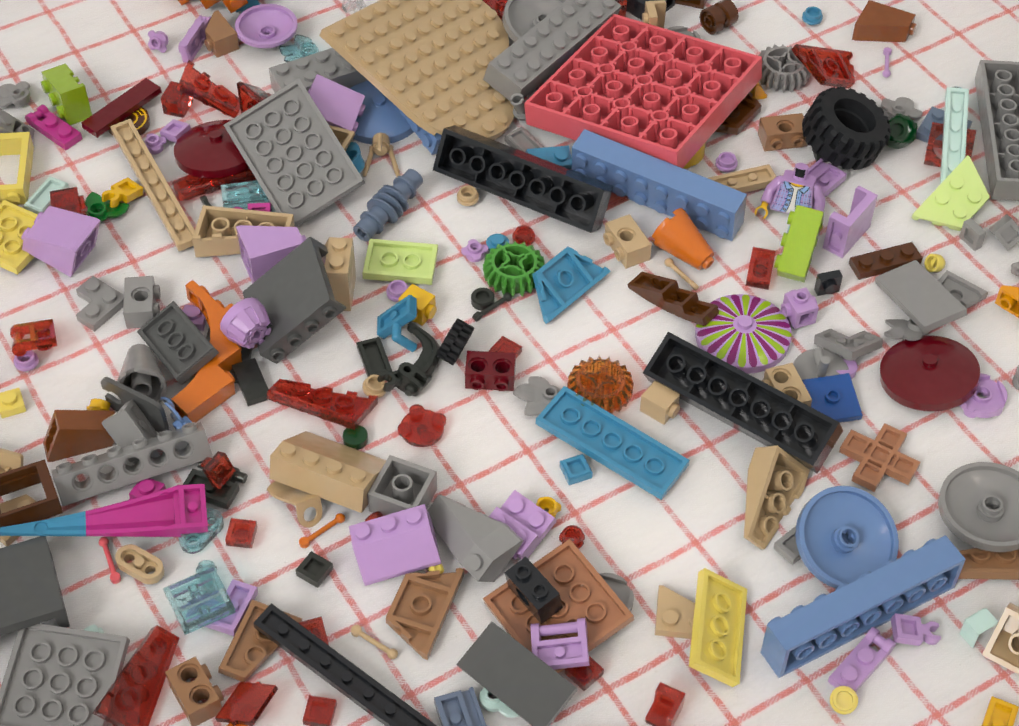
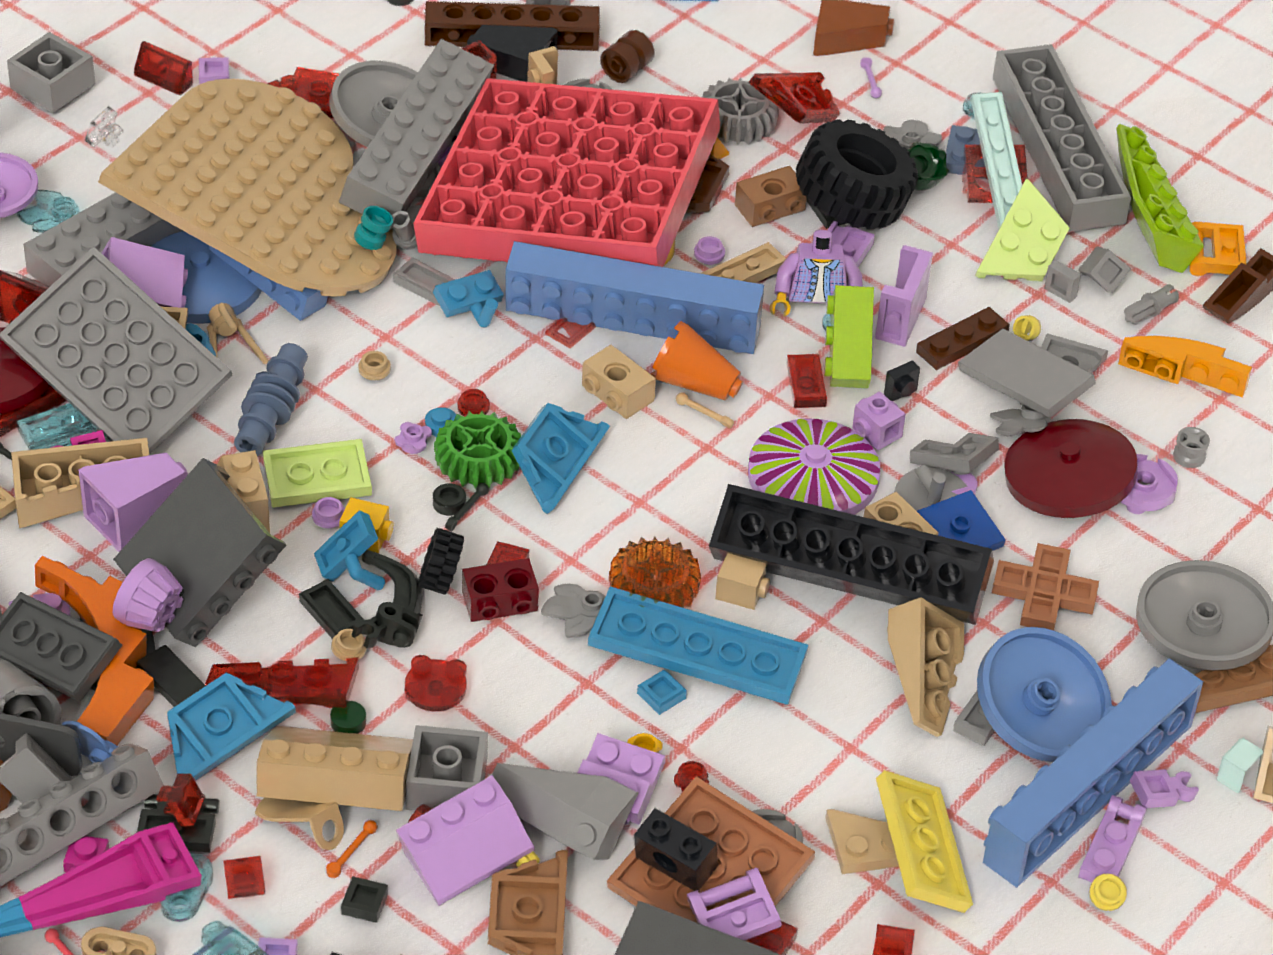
camera: 20 degrees left, 5 degrees down
(266, 421) = (221, 723): none -> dark azure wing
(497, 101) = (373, 229): none -> teal wheel
(522, 178) = (446, 325): black brick -> none
(669, 297) = (699, 442): reddish brown slope -> none
(812, 15) = (751, 33): dark azure plate -> none

